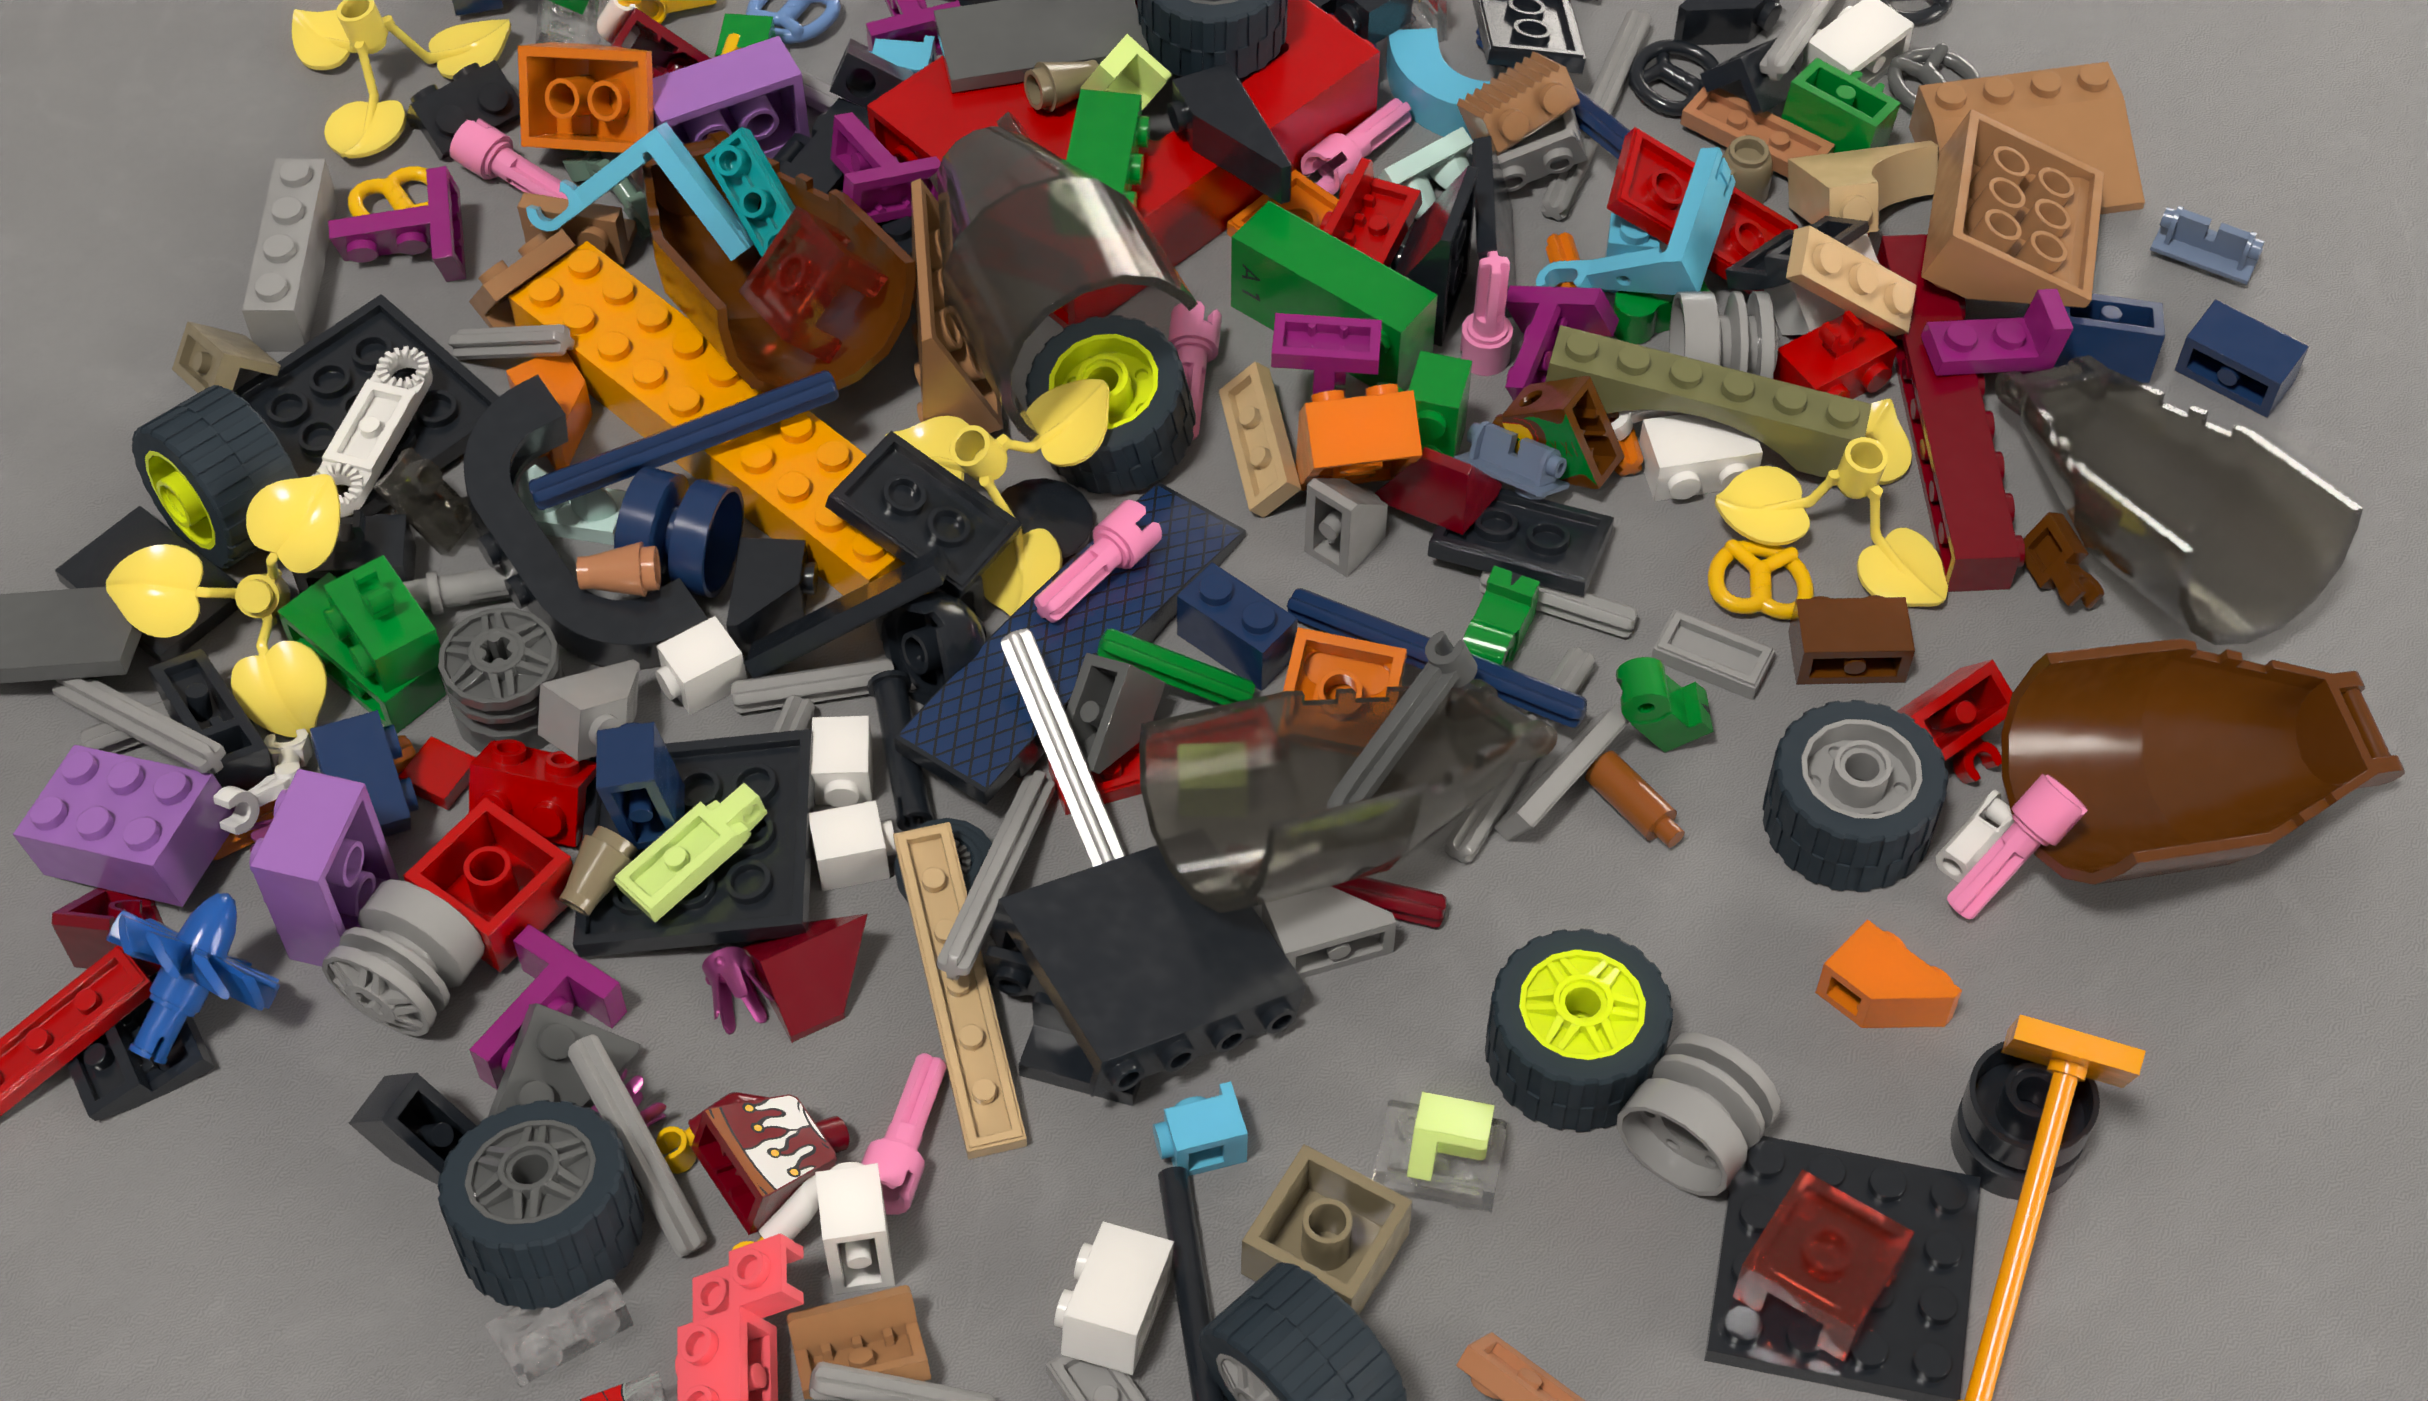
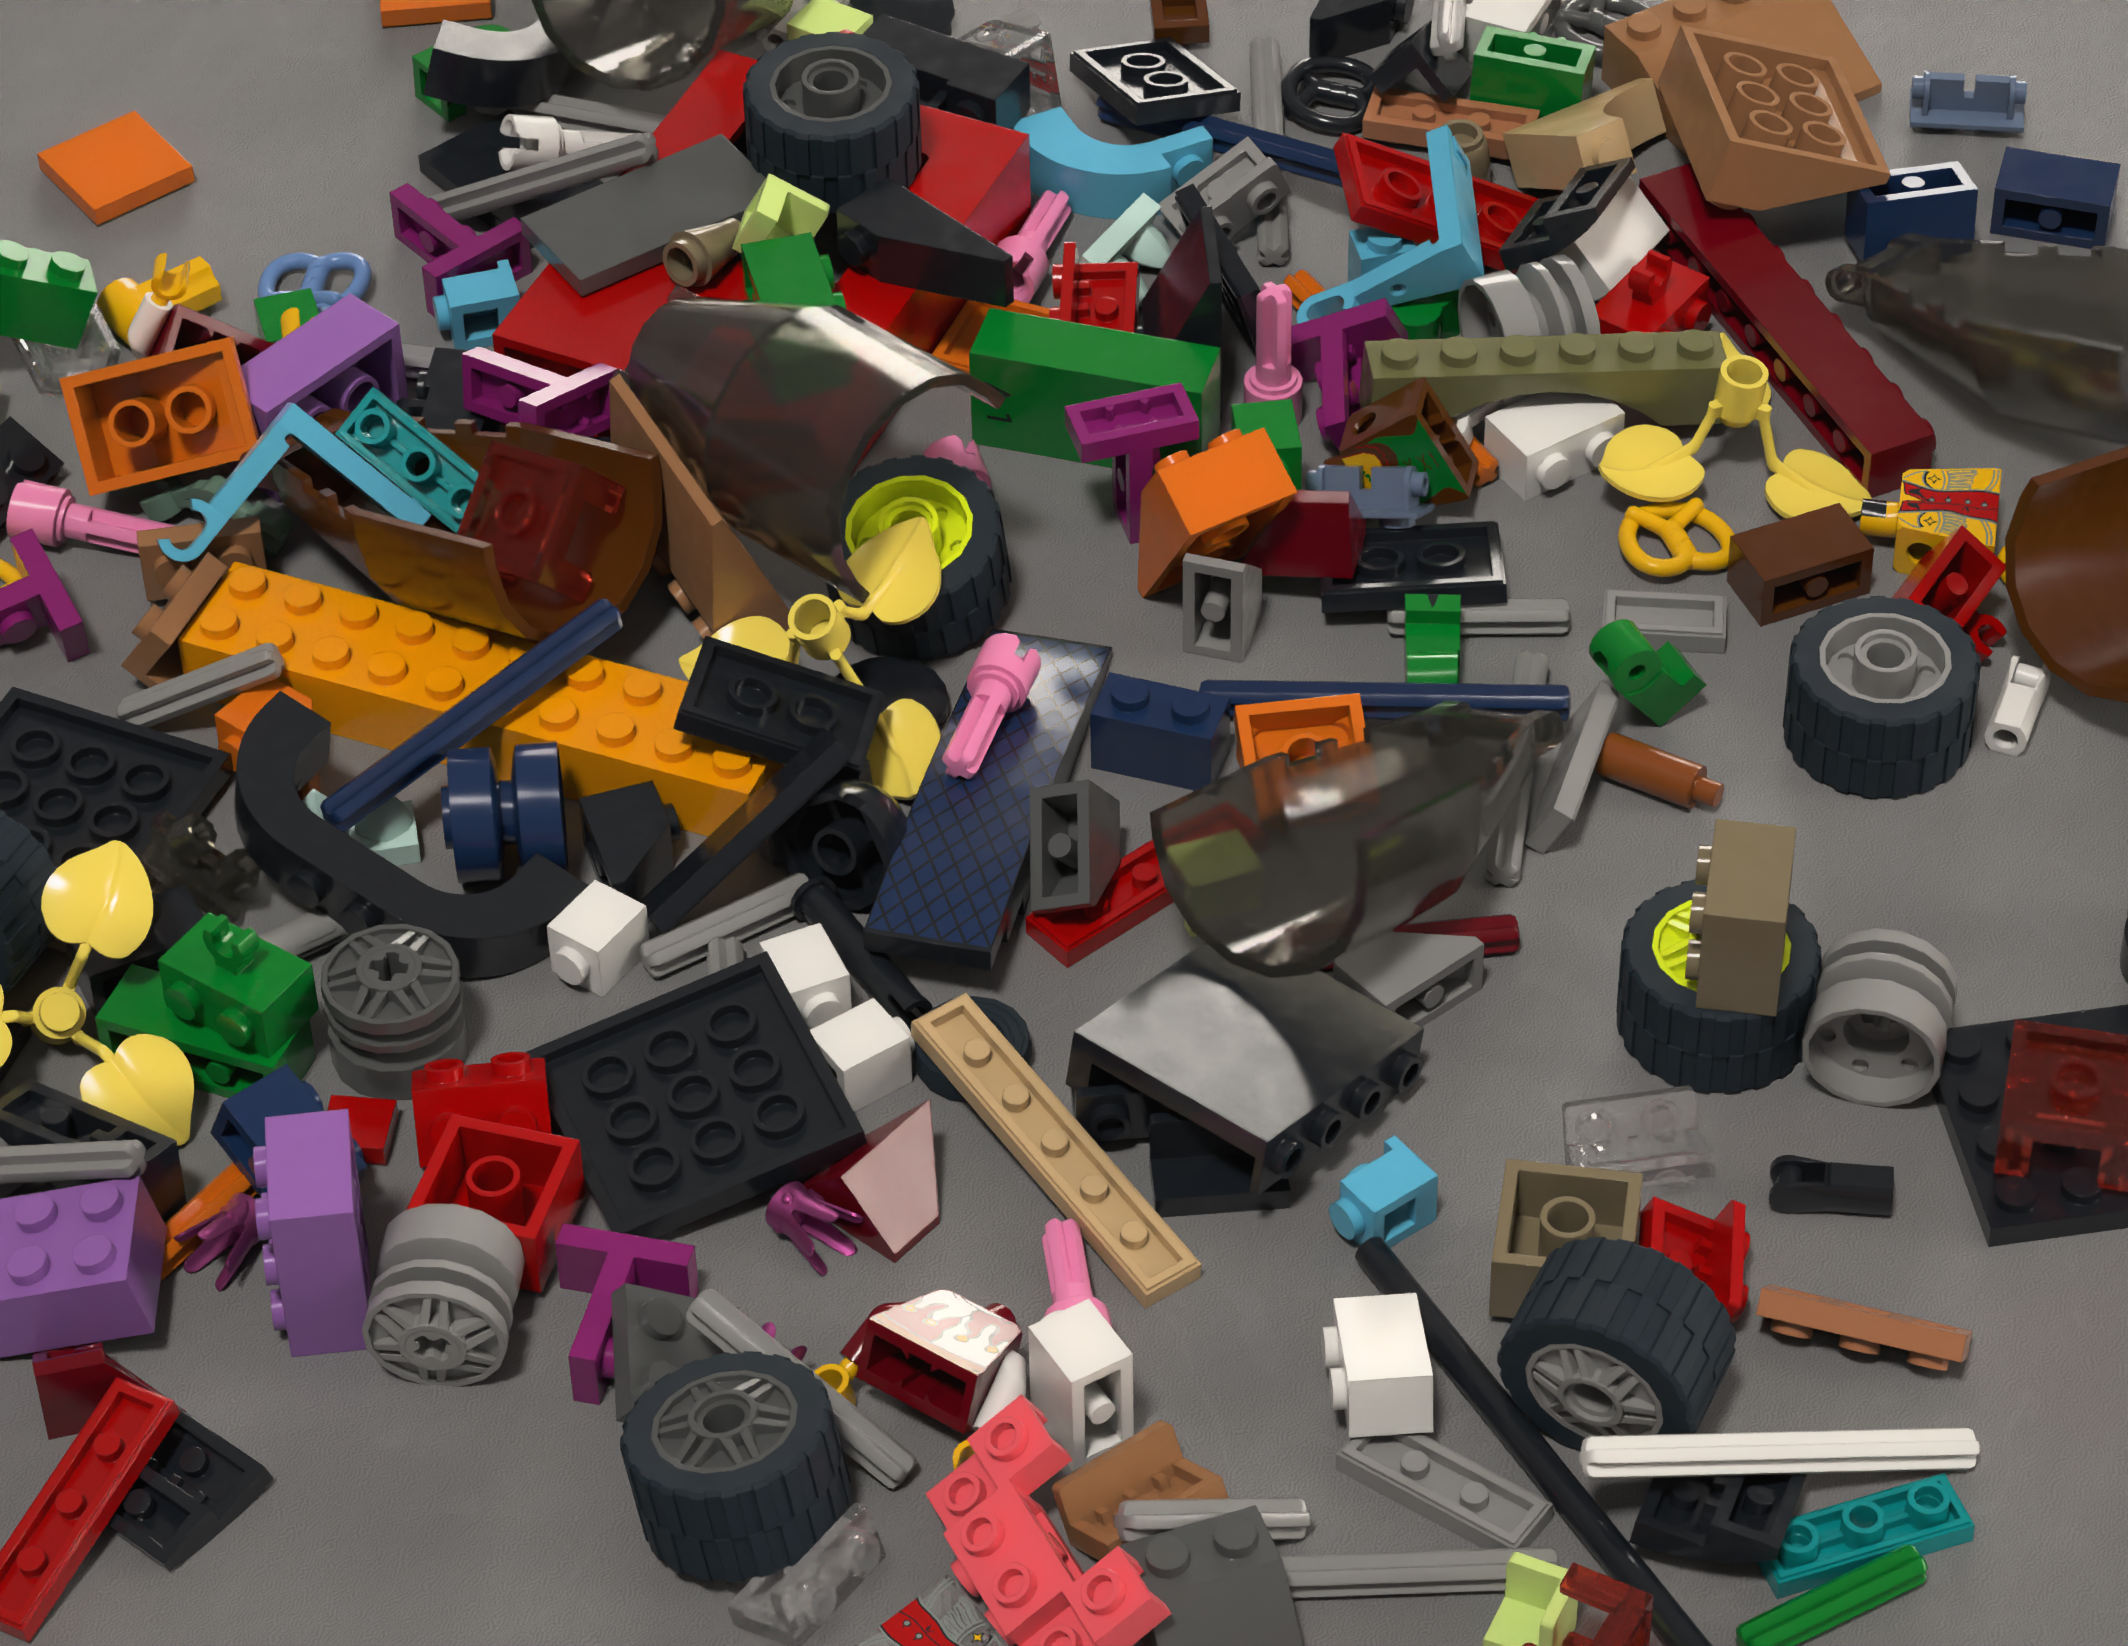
camera: 20 degrees left, 10 degrees down
(191, 968) = (218, 1369): blue piece -> none
(286, 760) = (198, 1178): white piece -> none
(375, 425) = (94, 789): white plate -> none
(411, 1124) = (551, 1455): black slope -> none
(587, 702) = (511, 1006): light grey slope -> none
(594, 869) = (609, 1147): dark tan cone -> none
(621, 570) = (478, 856): nougat cone -> none
(638, 782) = (626, 1046): dark blue brick -> none
(690, 852) = (704, 1101): yellowish green hinge -> none
(865, 76) = (458, 317): black leg -> none
(995, 875) = (1041, 1029): light grey axle -> none
(1061, 747) = (1046, 884): axle -> none
(1176, 668) = (1131, 788): green axle -> none
(1259, 439) = (1083, 554): tan plate -> none
(1427, 1295) = (1706, 1246): none -> red bracket
(1446, 669) = (1403, 739): dark grey piece -> none
(1448, 1128) = (1642, 1108): yellowish green panel -> none
(1519, 101) = (1197, 147): medium nougat brick -> none
(1594, 995) = (1741, 916): none -> dark tan brick
(1599, 1261) = (1821, 1186): none -> black bar
(1851, 281) = (1643, 217): tan plate -> none
(1885, 984) = (1998, 858): orange slope -> none
(1994, 627) = (1932, 508): none -> torso
(2002, 343) = (1818, 243): magenta bracket -> none
(2040, 817) = (2082, 650): bright pink piece -> none
(2054, 561) = (1966, 432): reddish brown plate -> none

